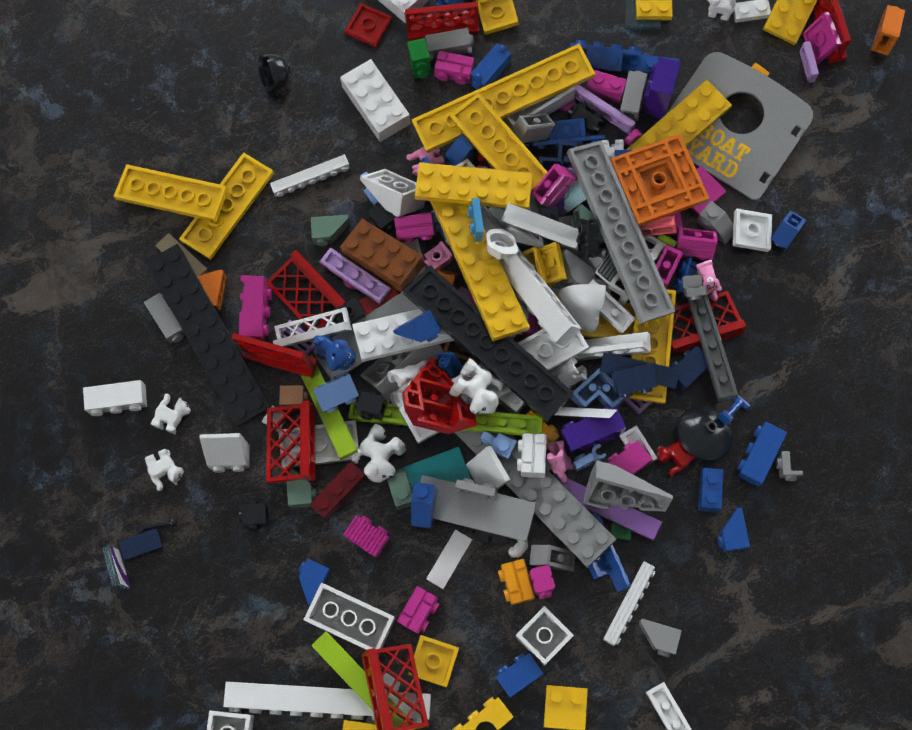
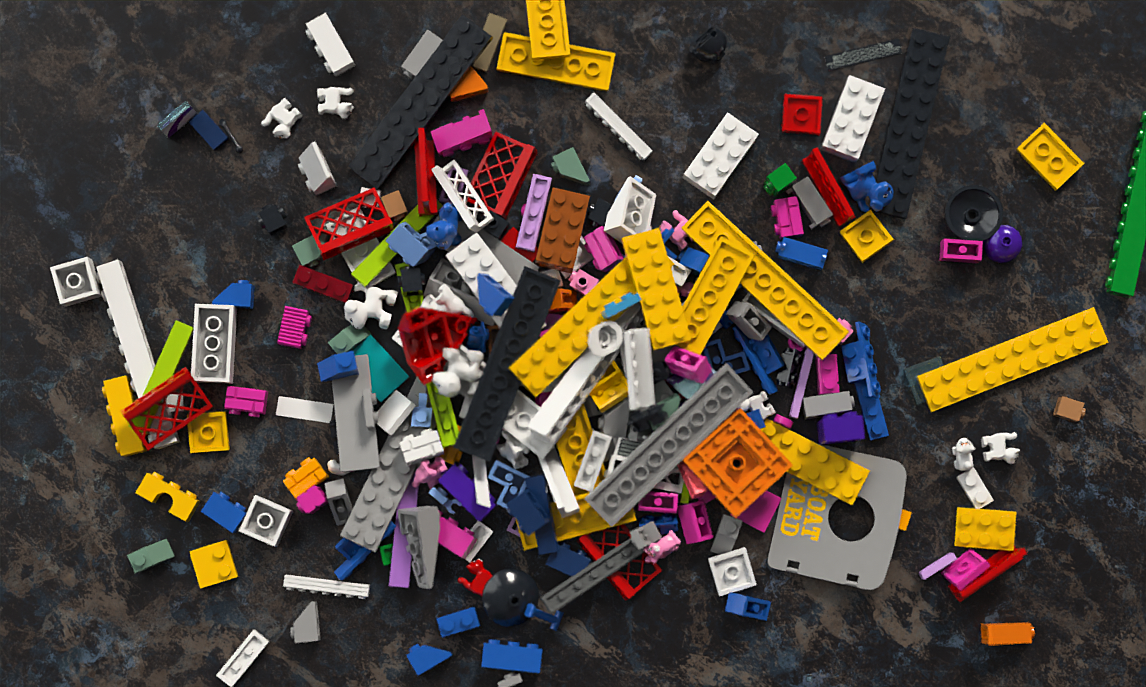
camera: 65 degrees right, 10 degrees up
(584, 303) = (581, 438): white brick -> none

